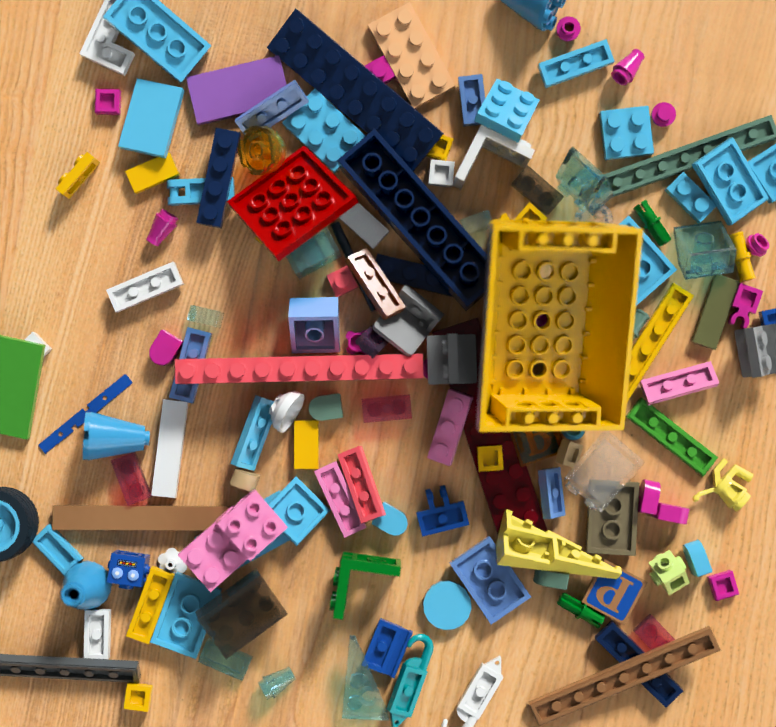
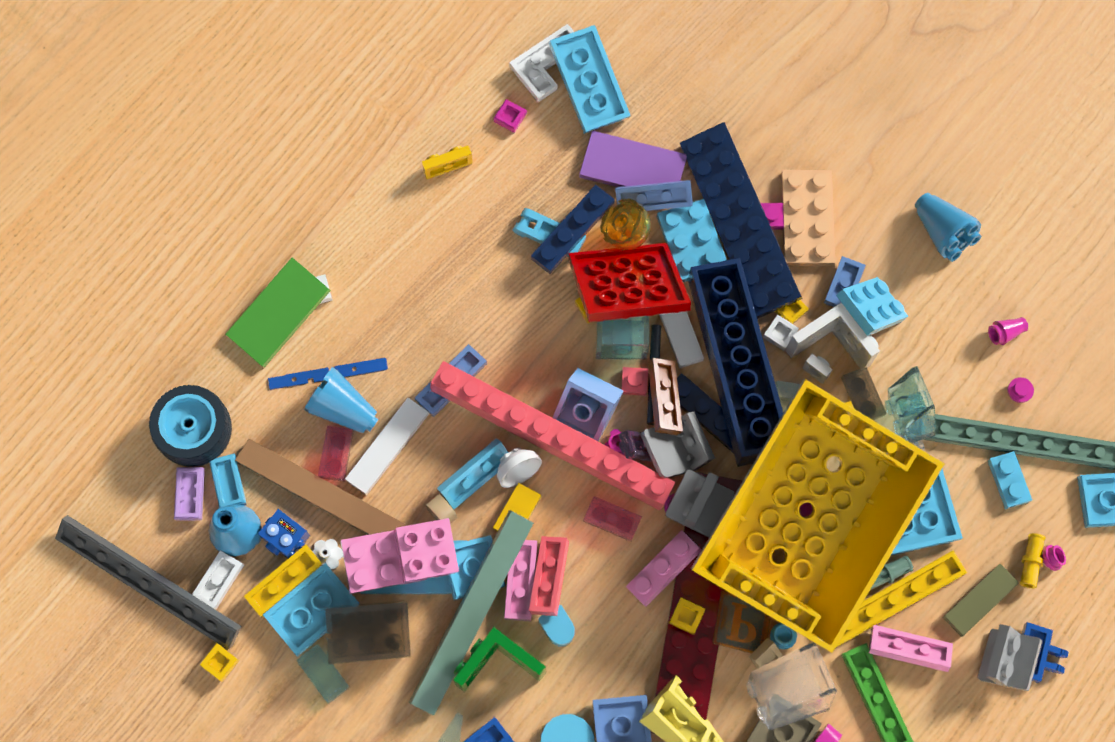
camera: 25 degrees right, 15 degrees down
(31, 577) = (189, 493): none -> lavender plate
(145, 287) = (450, 289): white plate -> none
(151, 118) = (541, 148): medium azure tile -> none
(152, 173) = (514, 195): yellow tile -> none
(161, 227) = (496, 245): dark pink cone -> none
(165, 348) = (435, 352): dark pink piece -> none
(205, 316) = (490, 344): clear light blue piece -> none
(276, 682) = (359, 723): clear light blue cone -> none
(315, 547) = (471, 612): none -> sand green tile
(326, 407) = (555, 487): sand green piece -> none
(442, 517) = (610, 652): blue hinge -> none
(488, 187) = (818, 368): none -> white plate
(551, 493) = (729, 686): medium blue plate -> none
(565, 35) = (966, 274): dark pink plate -> none
(575, 63) = (959, 301): medium azure plate -> none
(626, 133) = (976, 388): medium azure plate -> none
(652, 223) = (960, 483): green axle -> none
(704, 250) = (998, 535): clear light blue slope -> none
(730, 181) = (1055, 483): medium azure tile -> none
(745, 301) = (1015, 605): dark pink plate -> none

